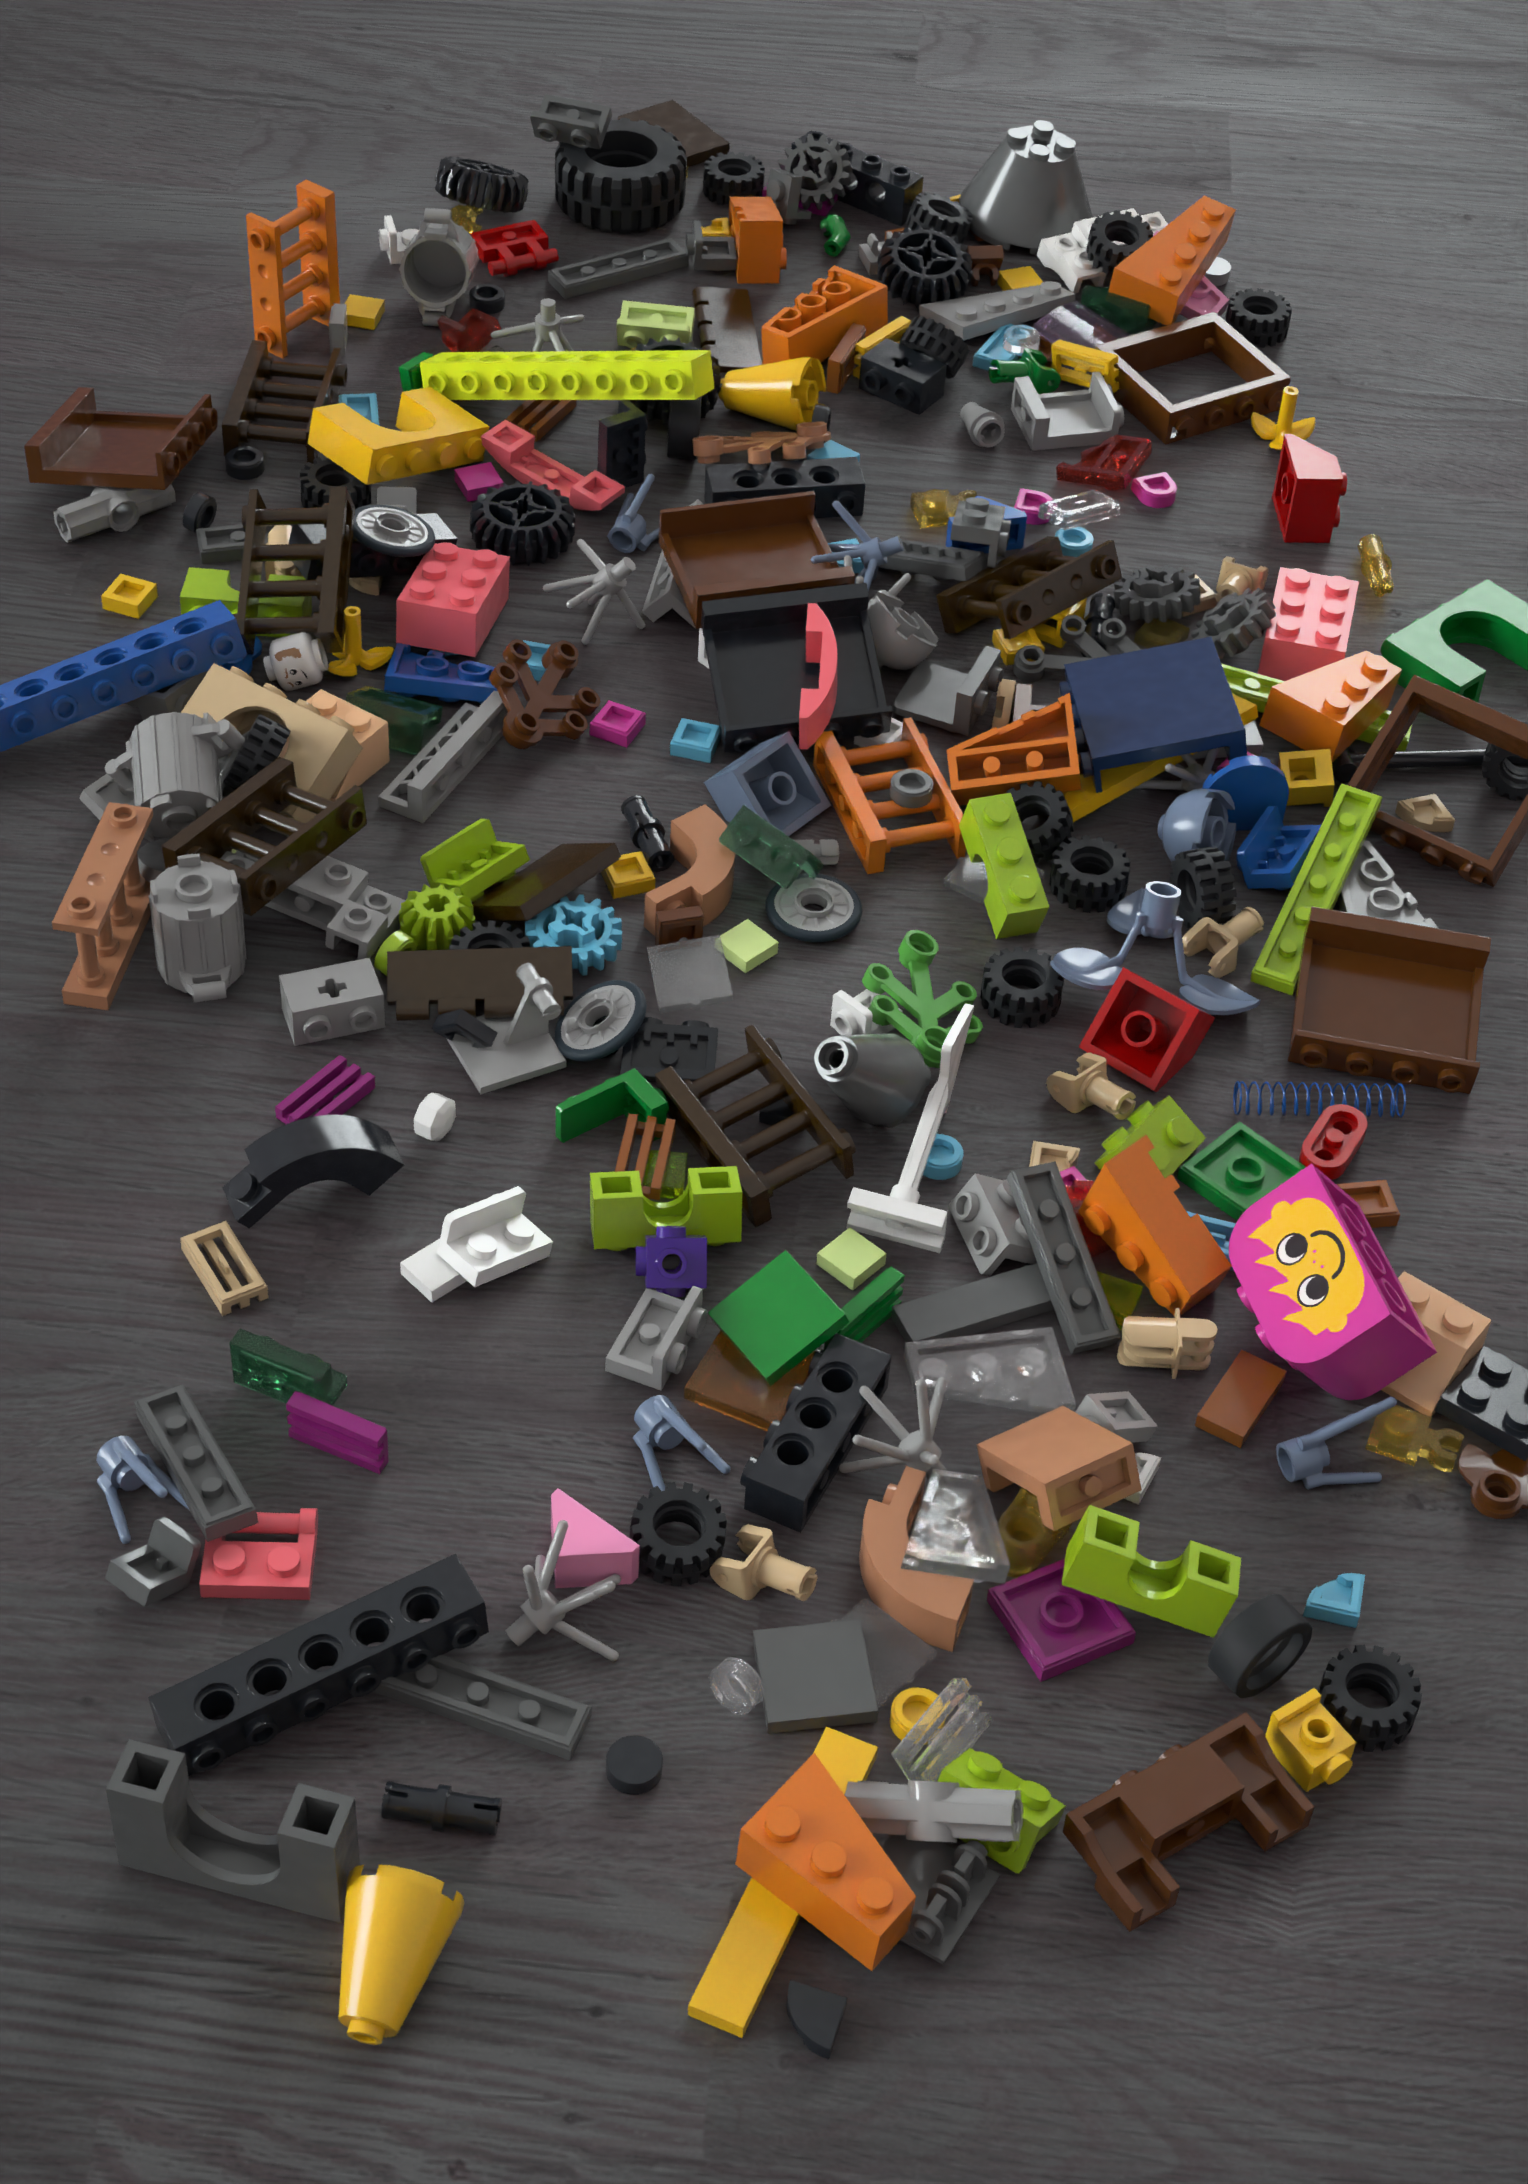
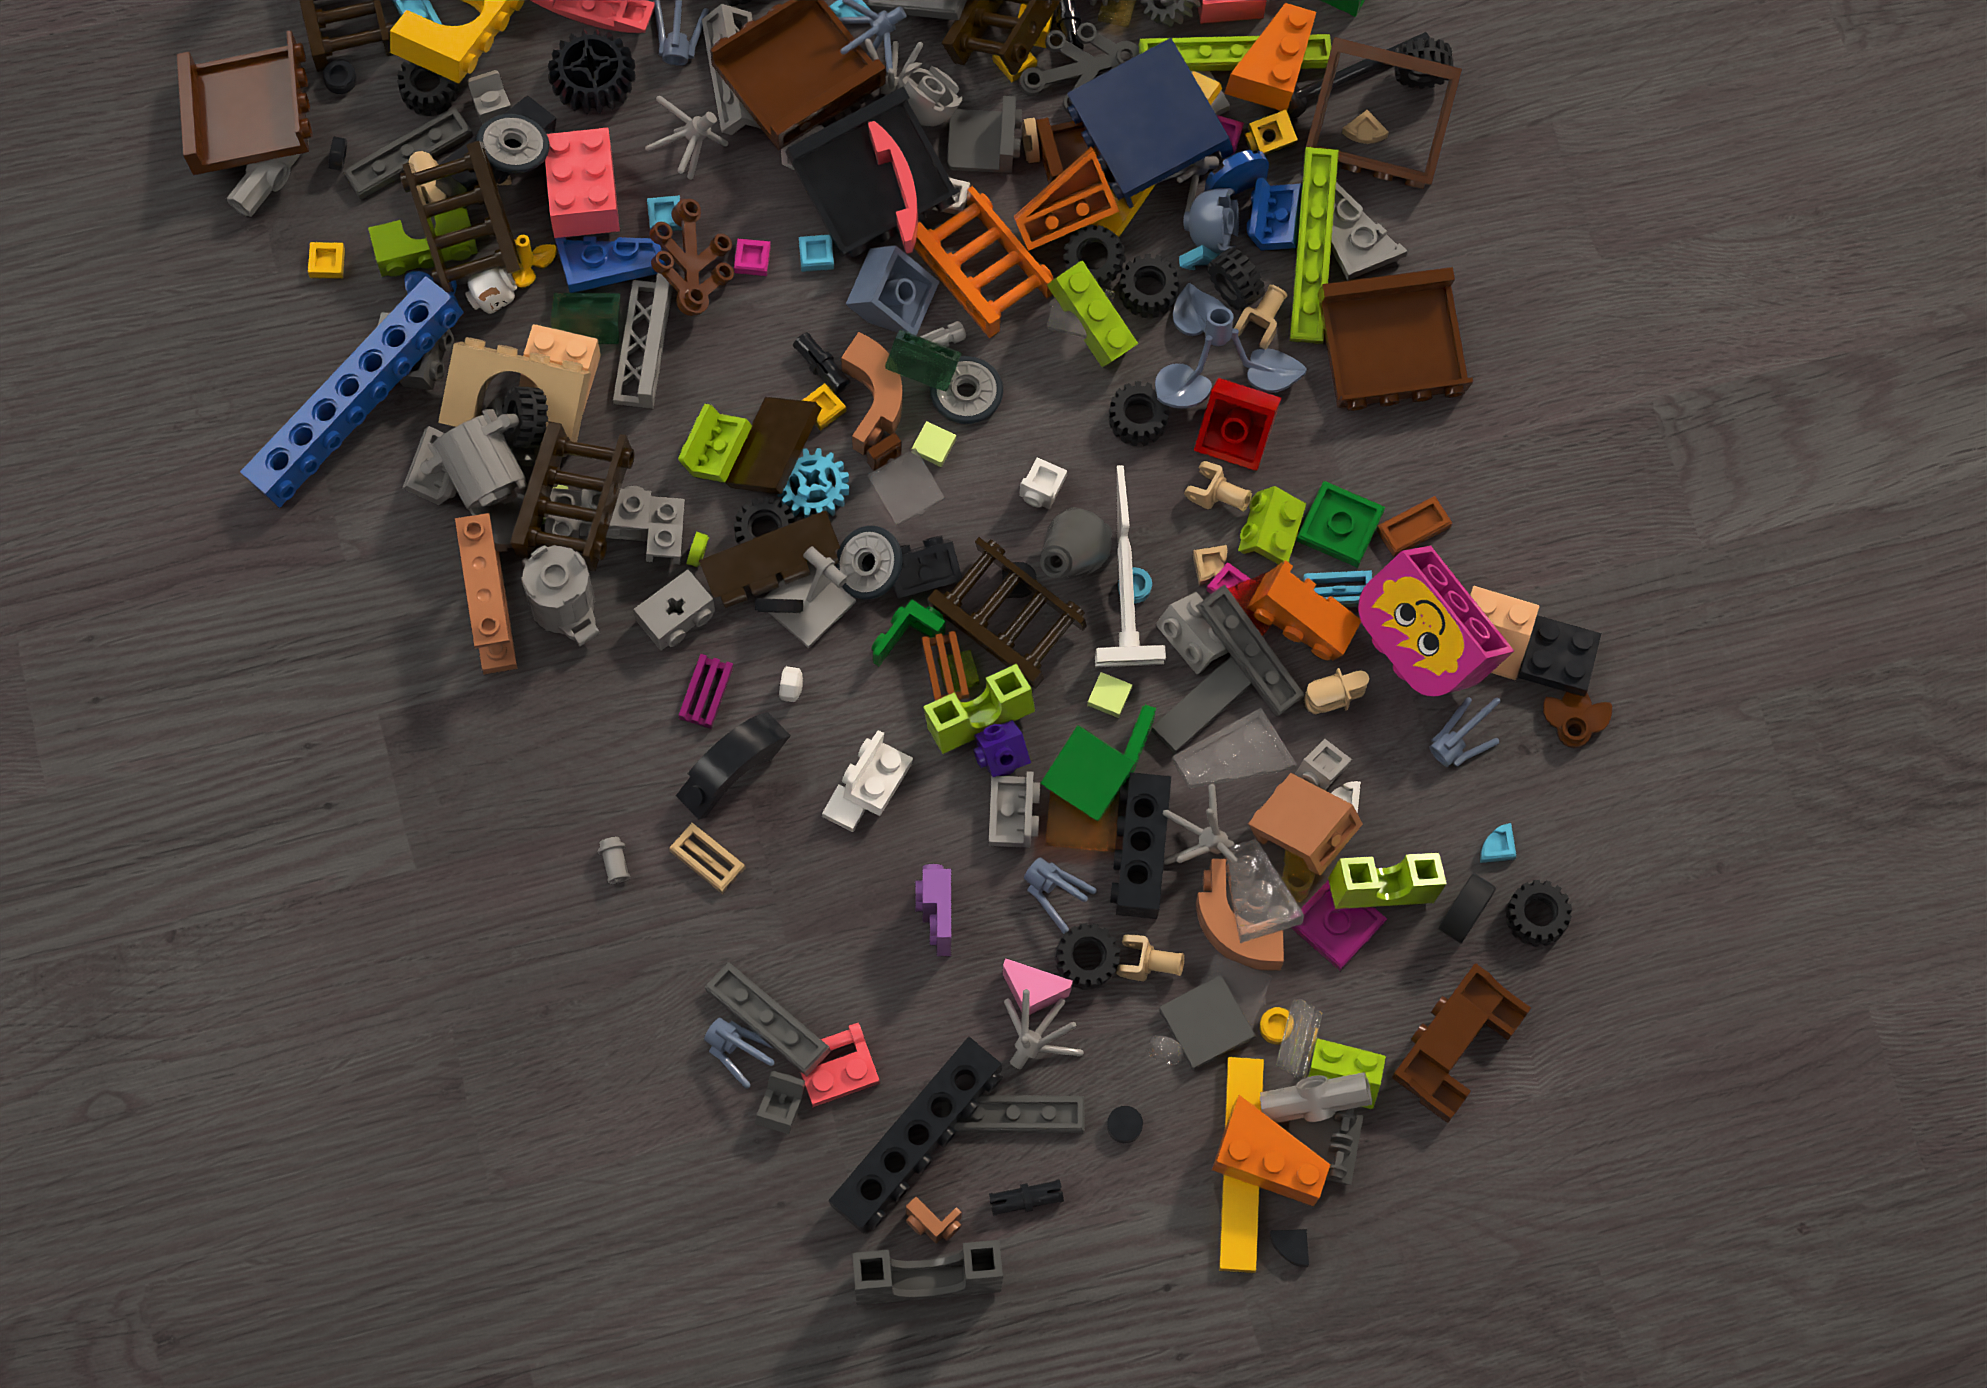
camera: 20 degrees left, 25 degrees up
(104, 1219) = (614, 859): none -> light grey pin
(274, 1779) = (923, 1220): none -> nougat bracket
(280, 1371) = (793, 930): clear green bracket -> none
(337, 1432) = (845, 962): magenta tile -> none
(390, 1944) = (1042, 1304): yellow cone -> none
(435, 916) = (711, 518): lime gear -> none
(476, 479) = (533, 30): dark pink tile -> none
(495, 1399) = (934, 899): none -> medium lavender plate
(911, 788) = (998, 257): dark grey tile -> none
(916, 954) = (1078, 460): bright green plant -> none
(1121, 1296) = (1293, 660): clear neon green tile -> none
(1159, 864) = (1197, 256): none -> medium azure tile
(1240, 1398) = (1394, 714): dark orange tile -> none
(1310, 1741) = (1502, 961): yellow brick -> none
(1320, 1103) = (1374, 449): blue piece -> none
(1334, 1140) = (1391, 478): red plate -> none
(1406, 1435) = (1510, 703): clear yellow plate -> none

